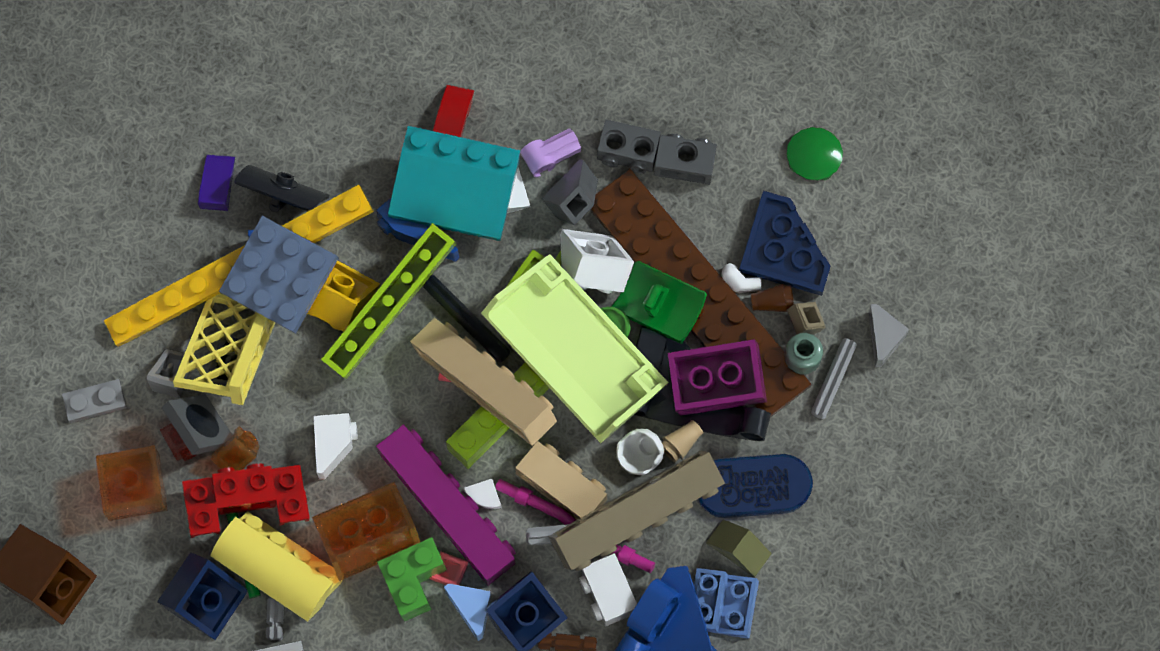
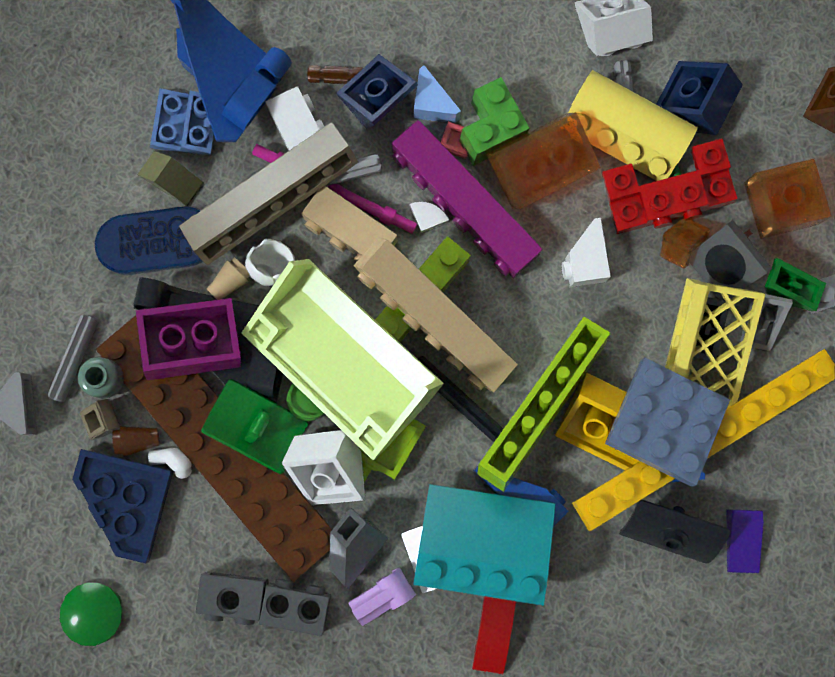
camera: 175 degrees right, 10 degrees up
(138, 399) = (794, 284): none -> green slope

